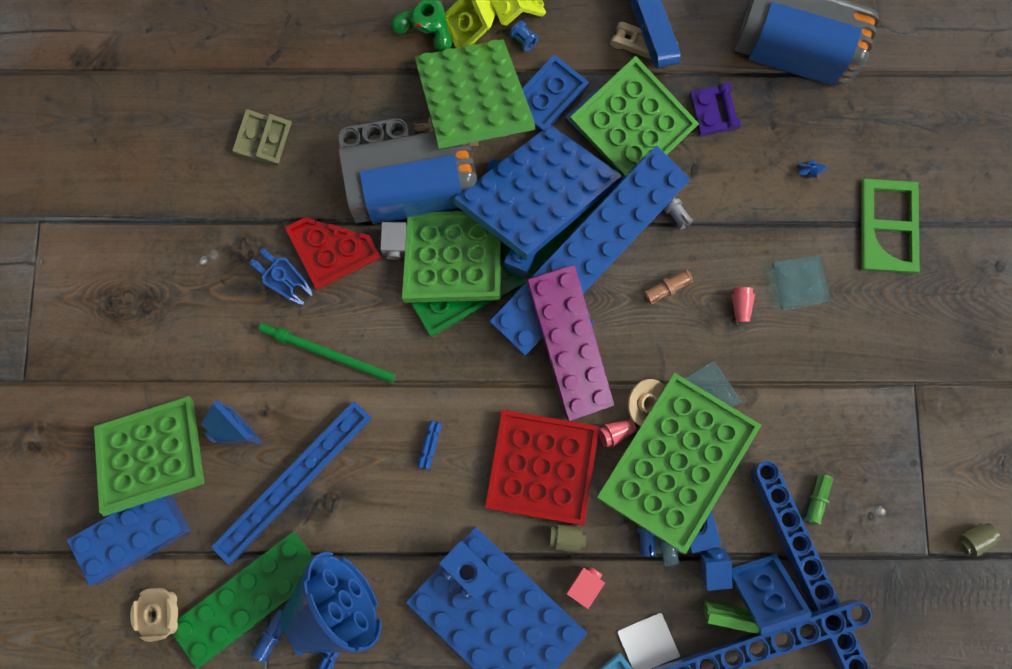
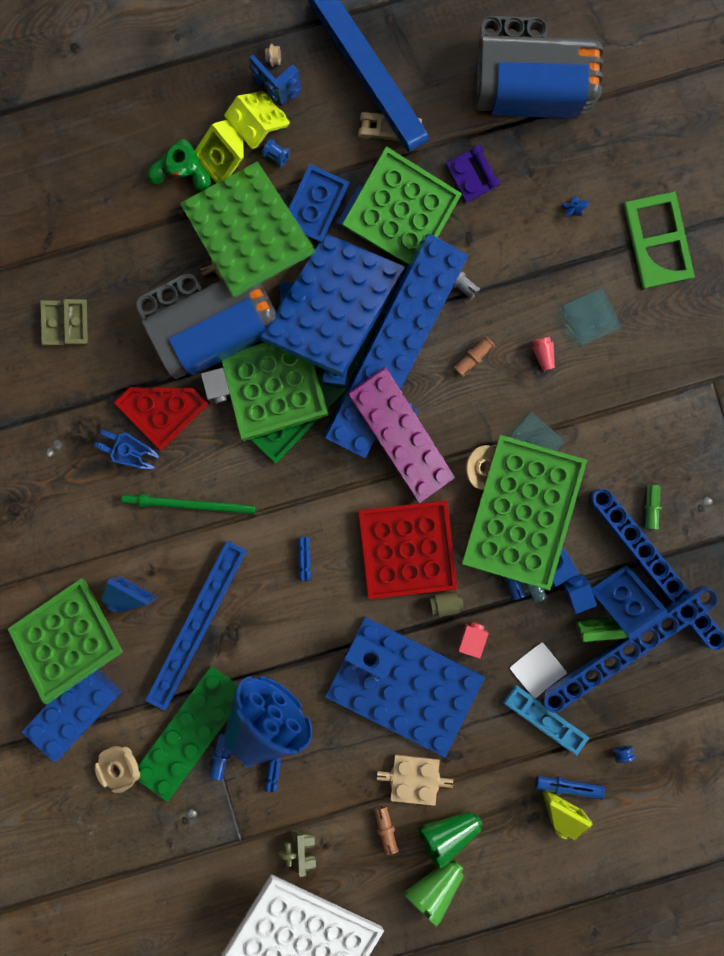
camera: 15 degrees left, 10 degrees up
(616, 432) = (462, 501): coral cone -> none

